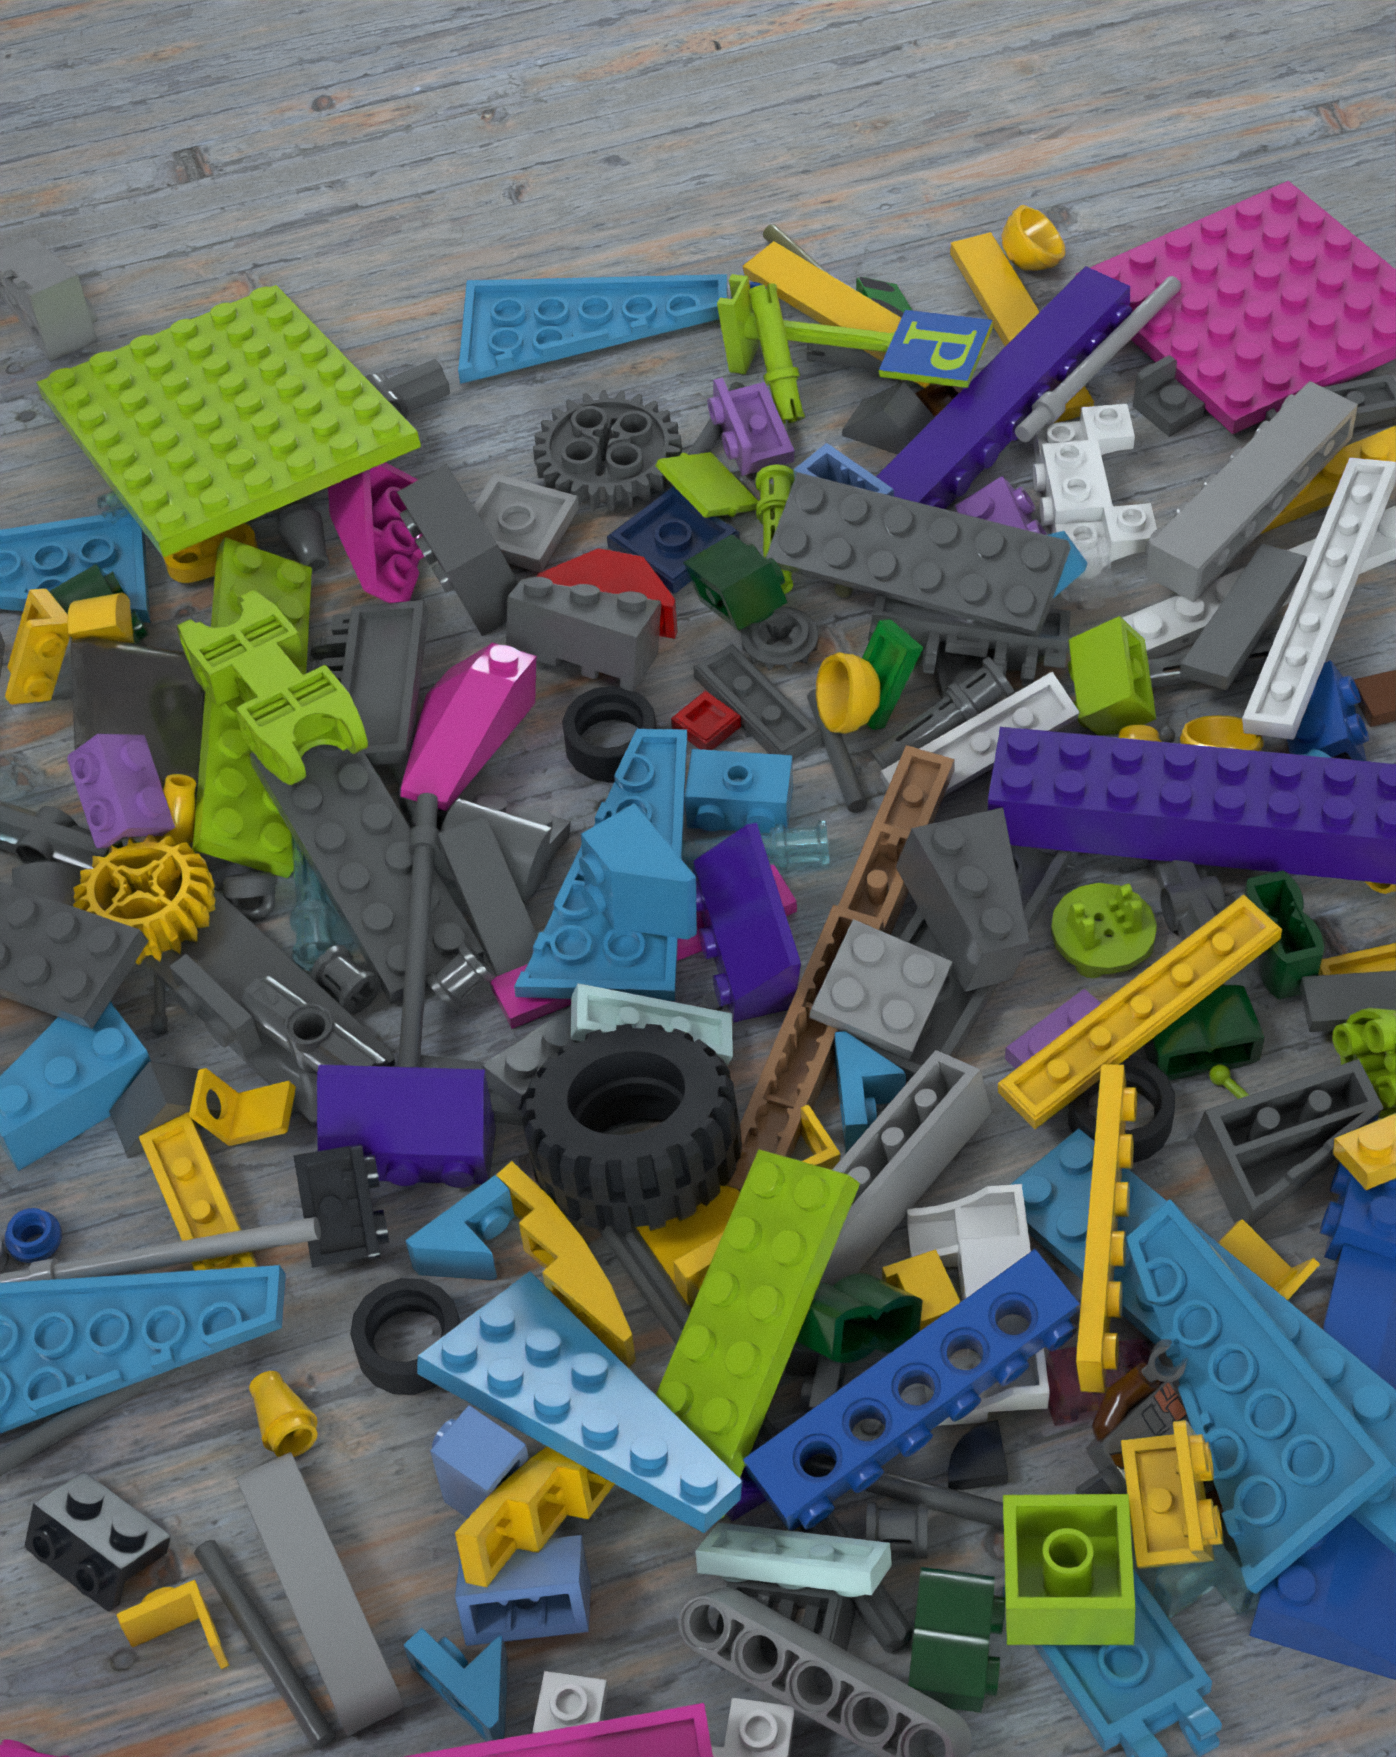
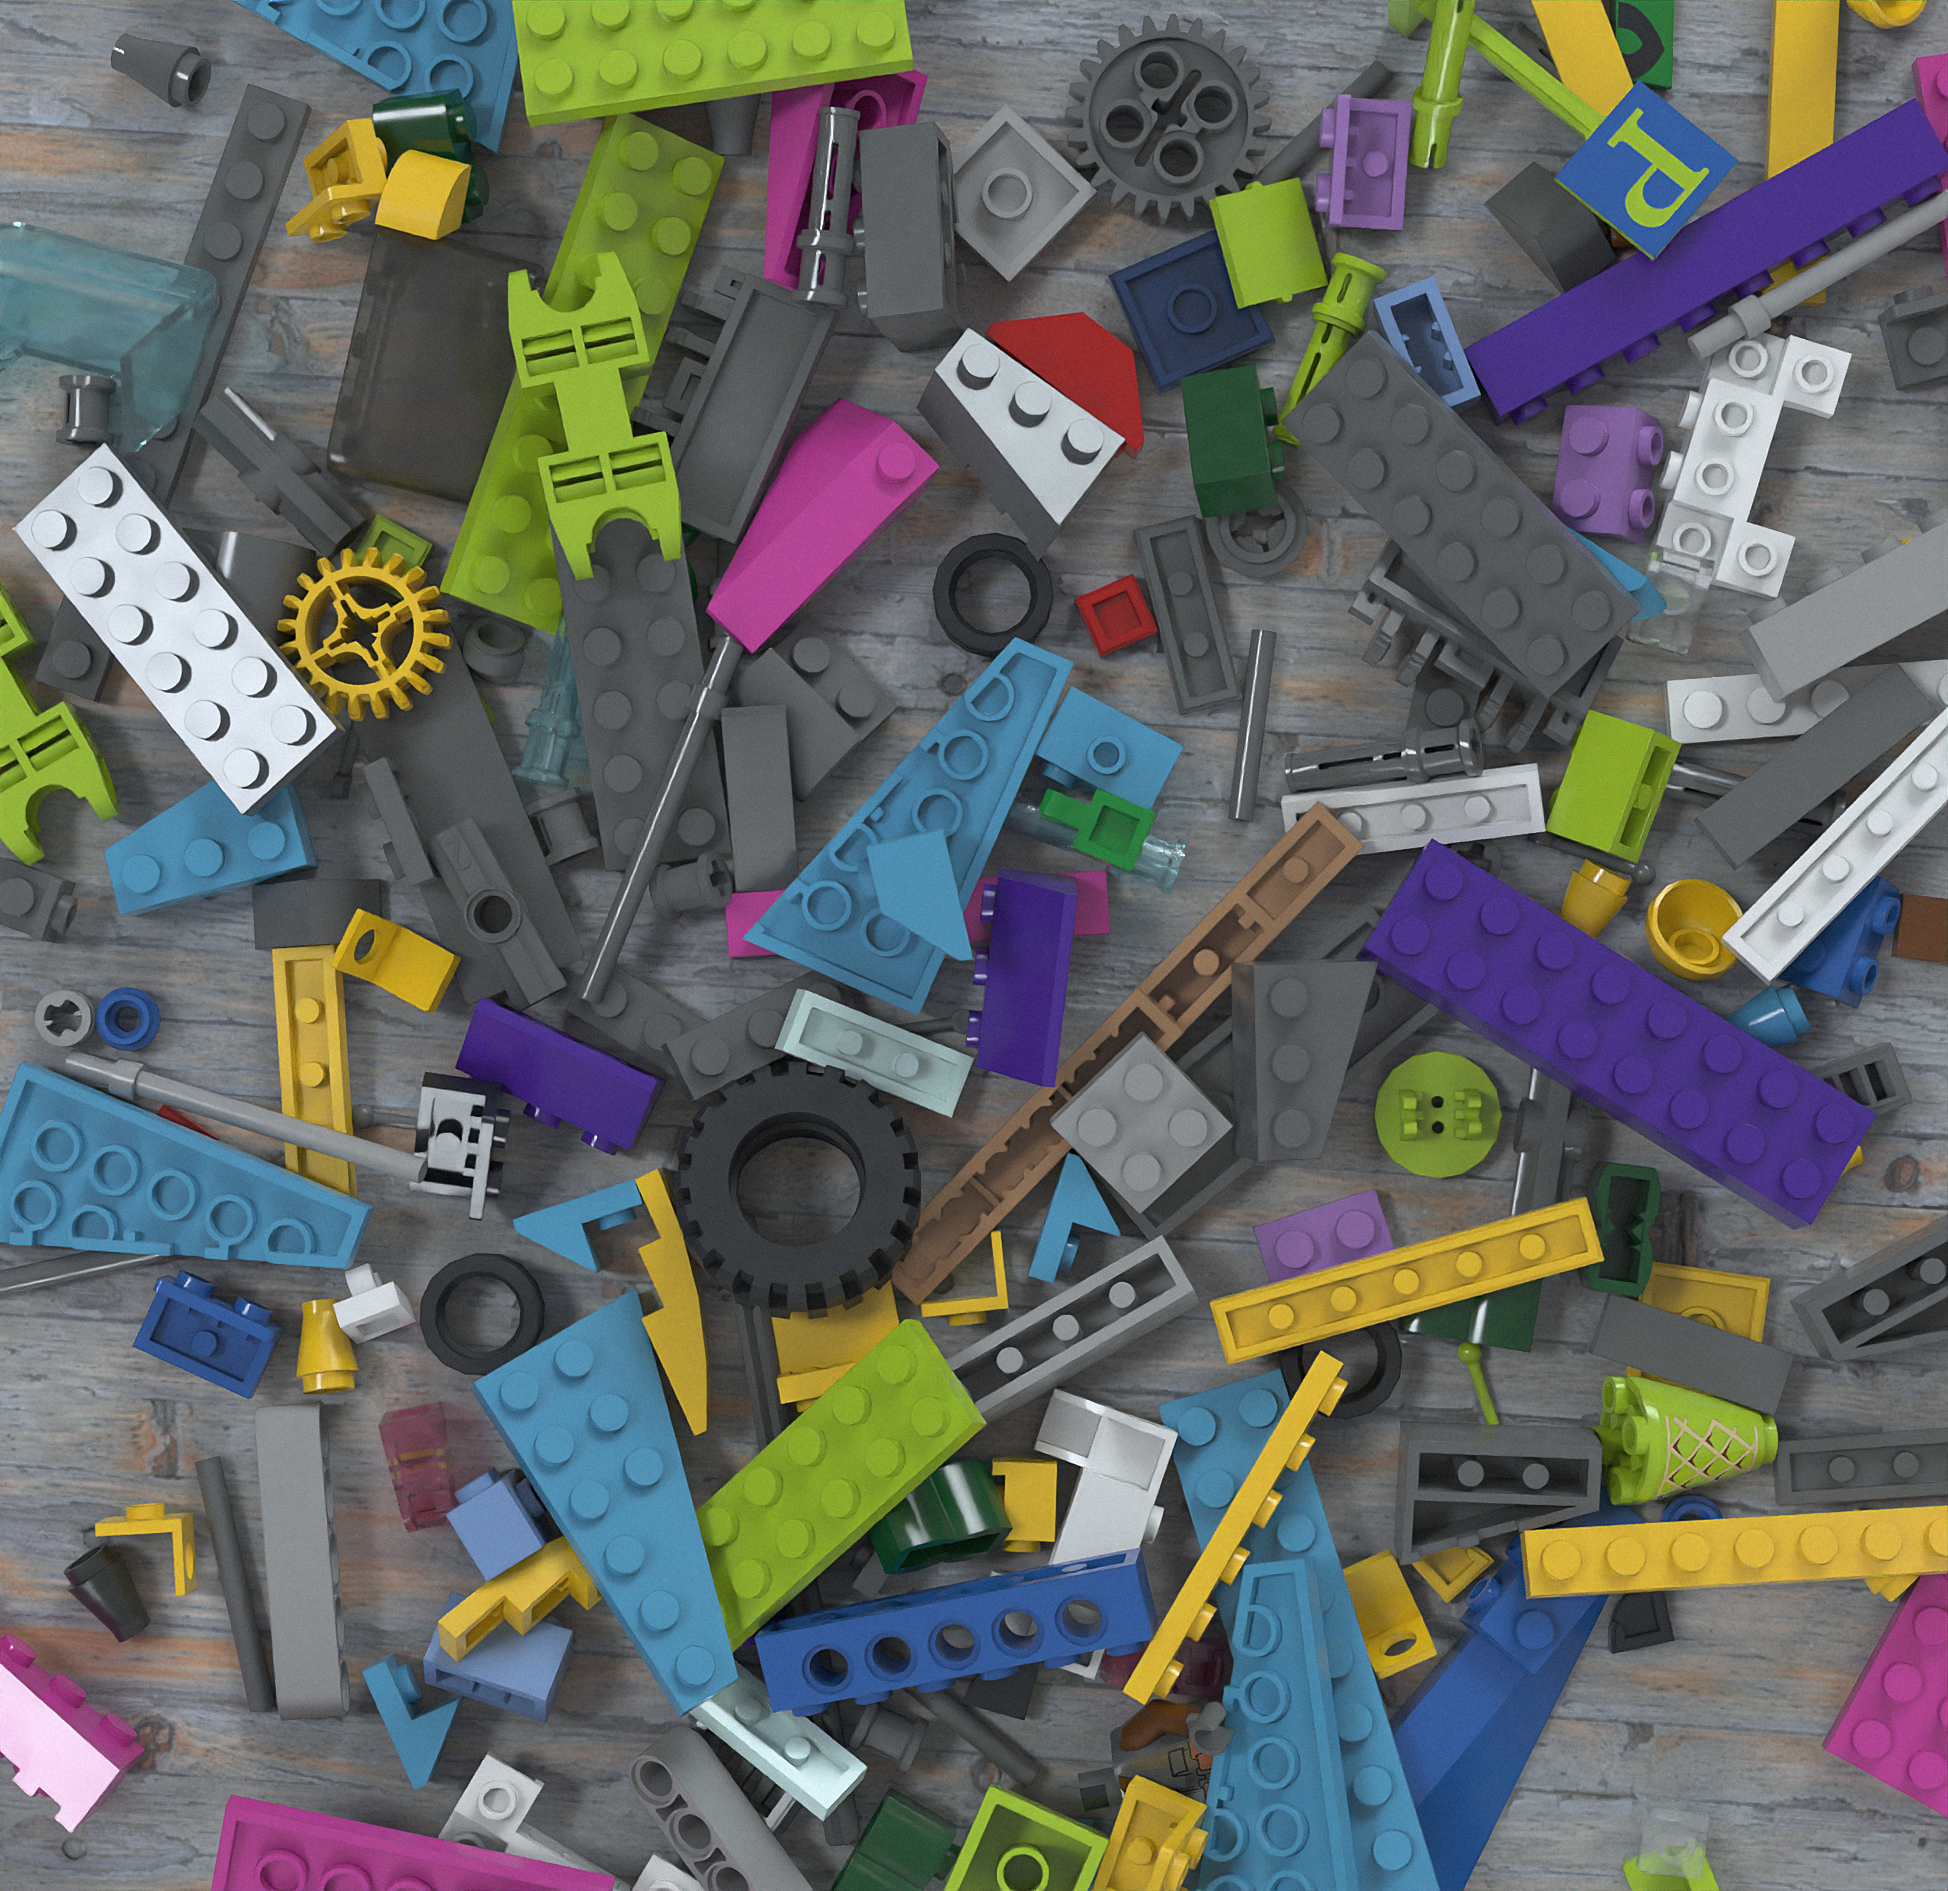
camera: 20 degrees right, 35 degrees up
(93, 1538) = (100, 1408): black bracket -> none
(119, 788) = (373, 498): medium lavender bracket -> none
(145, 1686) = (107, 1590): none -> pearl dark grey cone
(174, 1434) = (208, 1334): none -> blue bracket
(180, 797) = (431, 527): yellow cone -> none
(312, 1363) = (374, 1306): none -> white tile
(382, 499) = (839, 131): none -> dark grey pin
(397, 1470) = (420, 1464): none -> clear pink leg
(768, 807) = (1107, 828): none -> green plate
(846, 692) = (1287, 683): yellow piece -> none
(893, 658) = (1342, 667): green tile -> none
(1291, 1227) = (1452, 1569): none -> yellow tile

